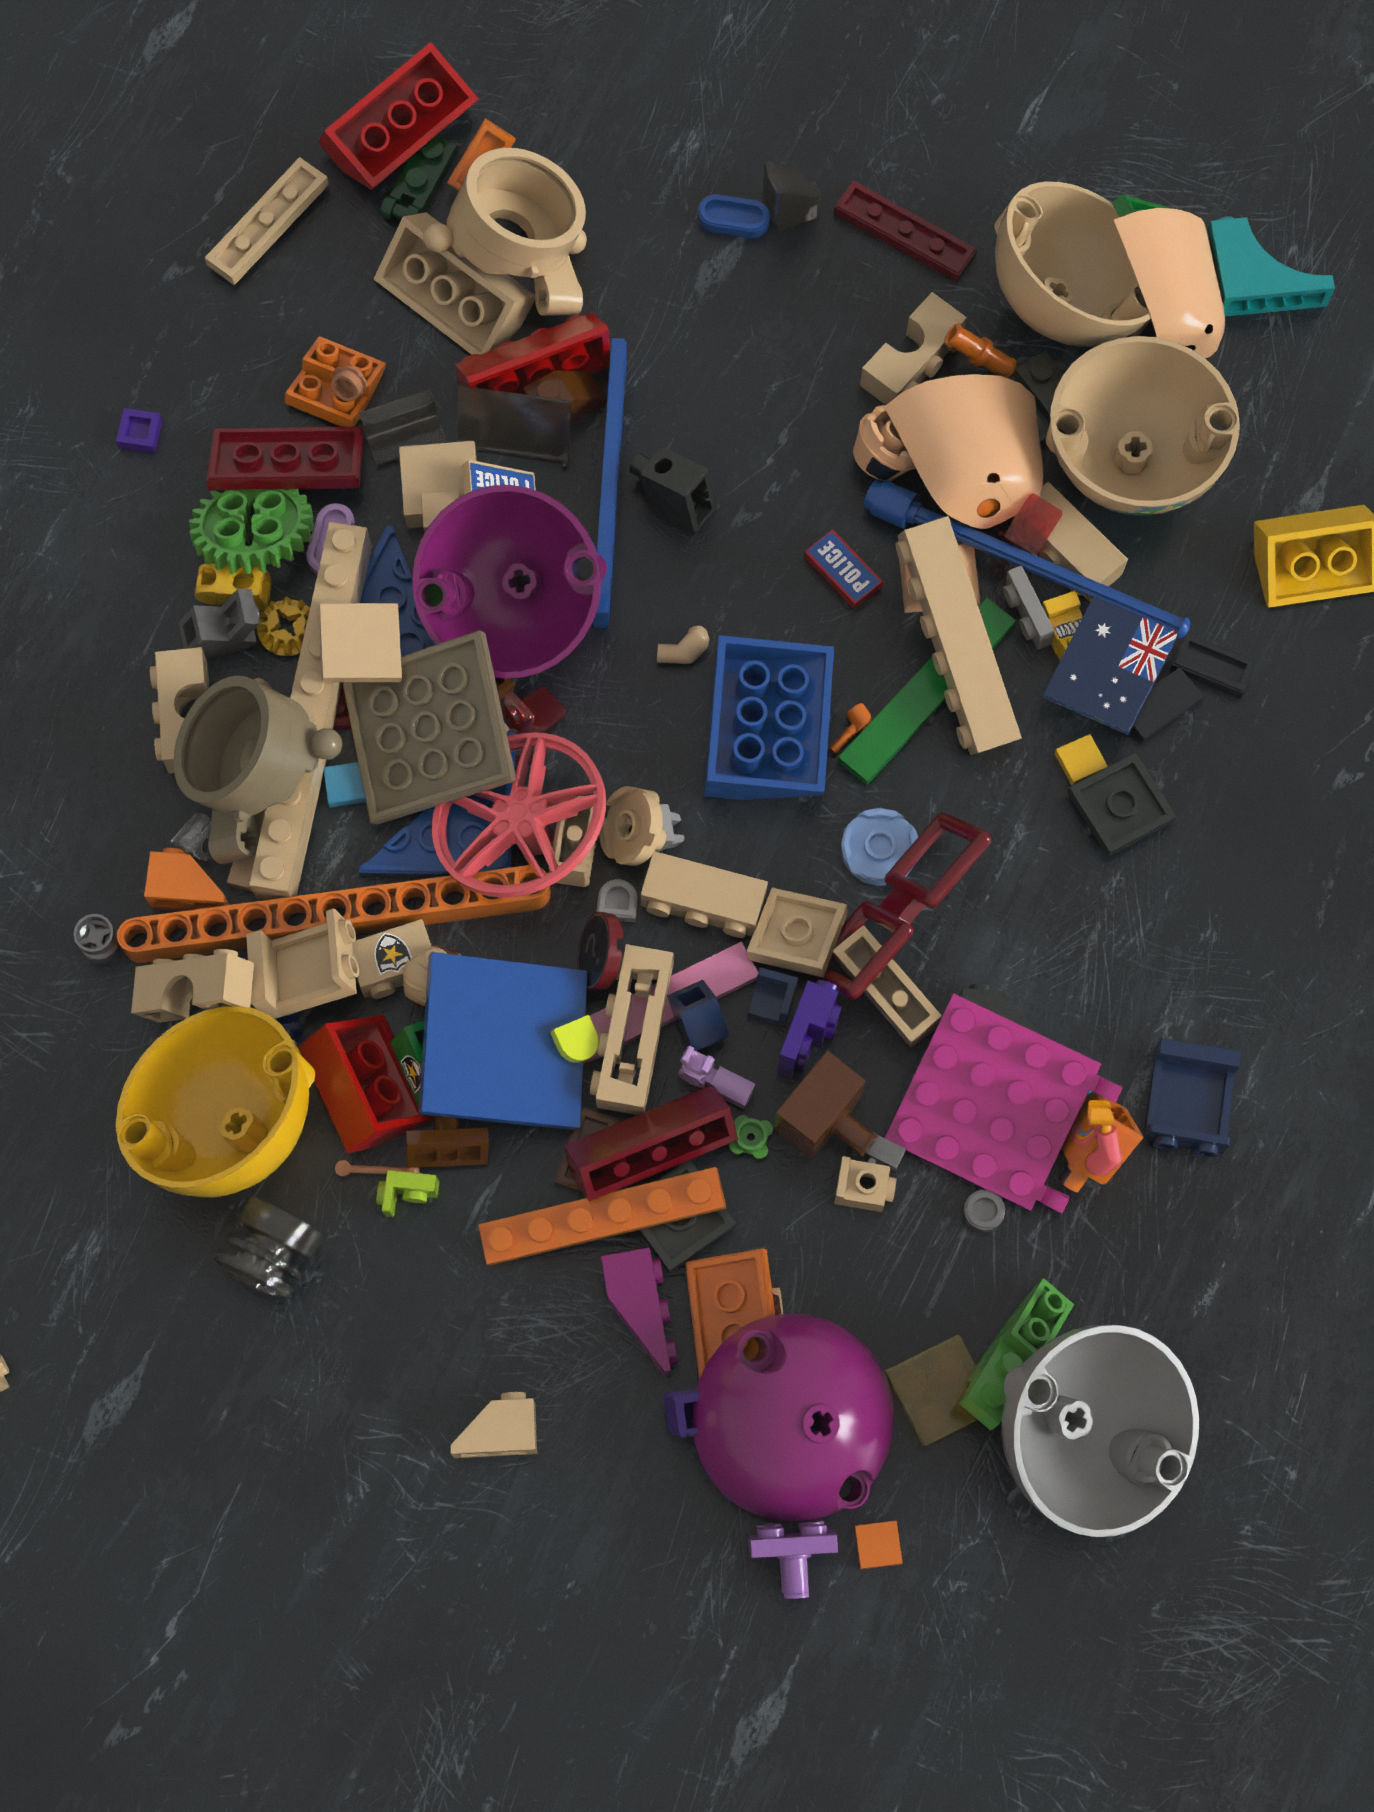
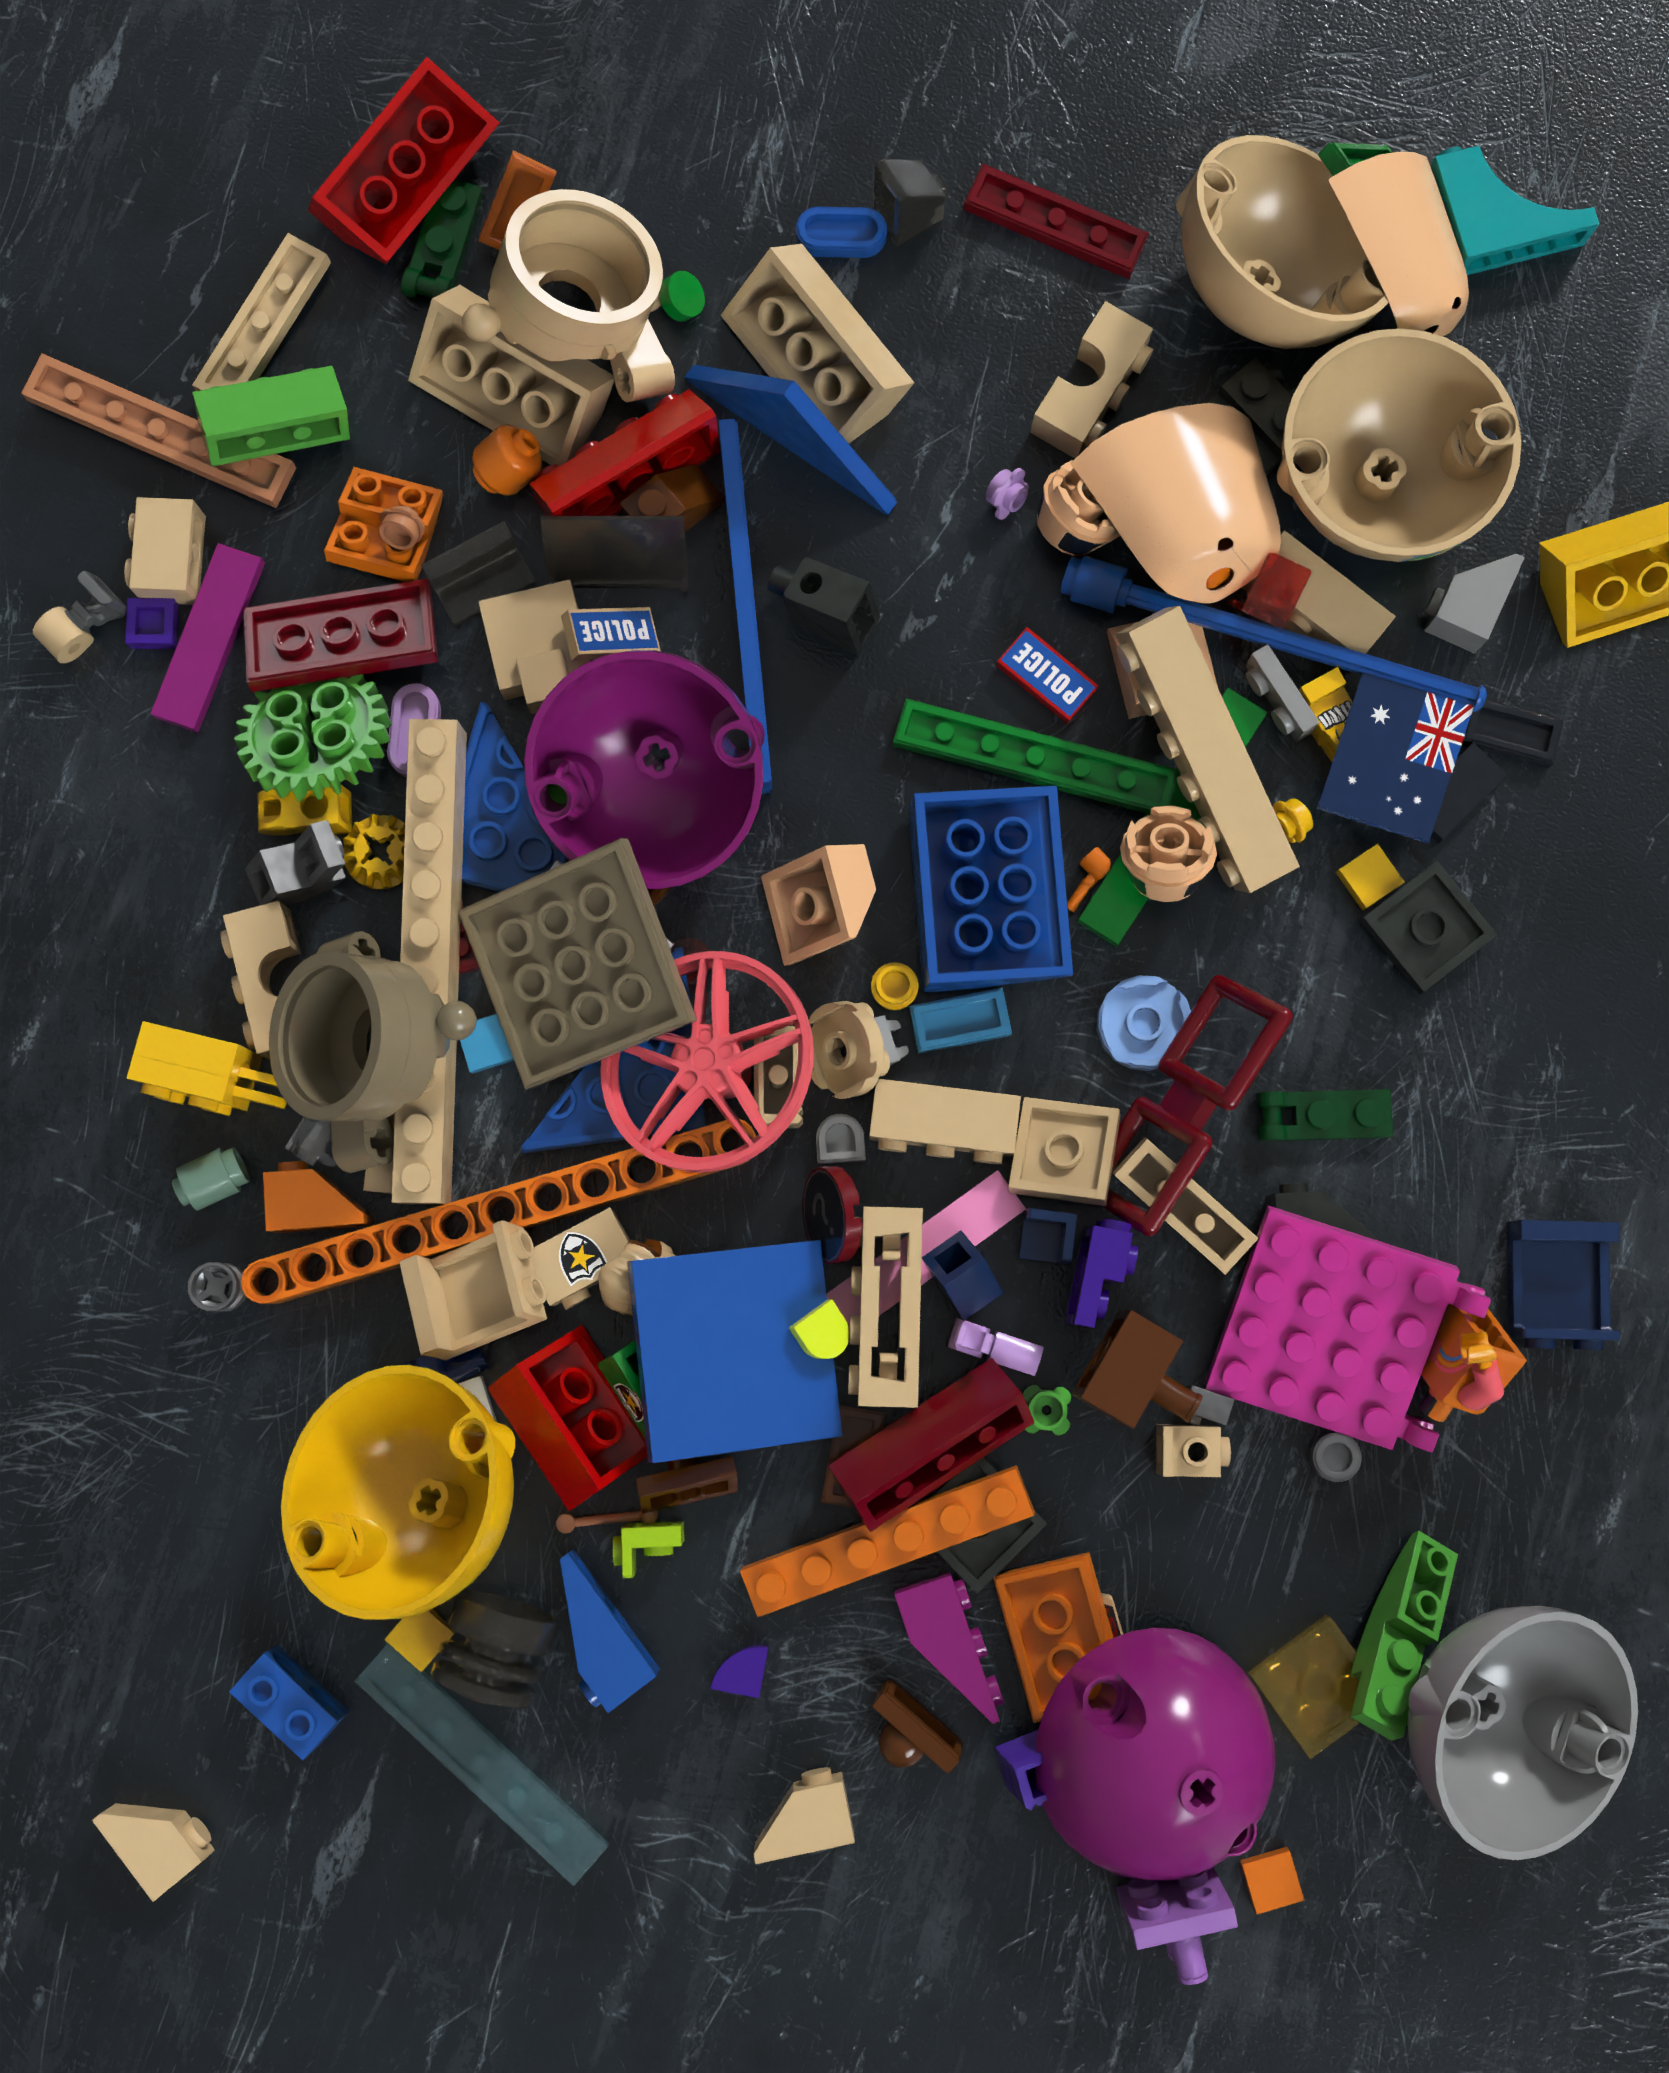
camera: 10 degrees left, 10 degrees up
(72, 426) = (68, 632): none -> leg
(94, 1270) = (289, 1701): none -> blue brick
(106, 854) = (210, 1178): none -> sand green brick
(116, 766) = (205, 1069): none -> yellow brick
(161, 376) = (166, 549): none -> tan brick
(167, 986) = (372, 1335): tan arch -> none
(172, 288) = (150, 428): none -> nougat plate
(180, 447) = (207, 638): none -> magenta tile
(206, 1237) = (419, 1637): none -> yellow tile
(241, 1348) = (483, 1764): none -> clear light blue tile
(262, 287) = (271, 415): none -> bright green brick
(356, 1265) = (605, 1646): none -> blue slope
(360, 642) = (474, 873): tan tile -> none
(440, 346) = (507, 460): none -> orange head
(466, 1307) = (742, 1672): none -> dark purple tile
(534, 712) = (701, 917): clear red bracket -> none
(597, 1374) = (913, 1731): none -> reddish brown tile
(599, 245) = (681, 296): none -> green tile
(630, 709) = (819, 900): none -> light nougat slope
(668, 344) = (794, 421): none -> blue tile
(681, 788) = (894, 986): none -> yellow plate
(687, 649) = (874, 808): tan arm -> none
(698, 296) = (813, 335): none -> tan slope
(730, 823) = (960, 1020): none -> dark azure tile
(823, 627) = (1034, 757): none -> green tile
(833, 425) = (1007, 492): none -> lavender plate
(915, 711) = (1168, 853): none -> light nougat cone
(980, 351) = (1175, 370): orange pin -> none
(1016, 939) = (1326, 1115): none -> dark green plate
(1024, 705) = (1294, 819): none -> yellow plate
(1193, 559) = (1471, 603): none -> light grey slope

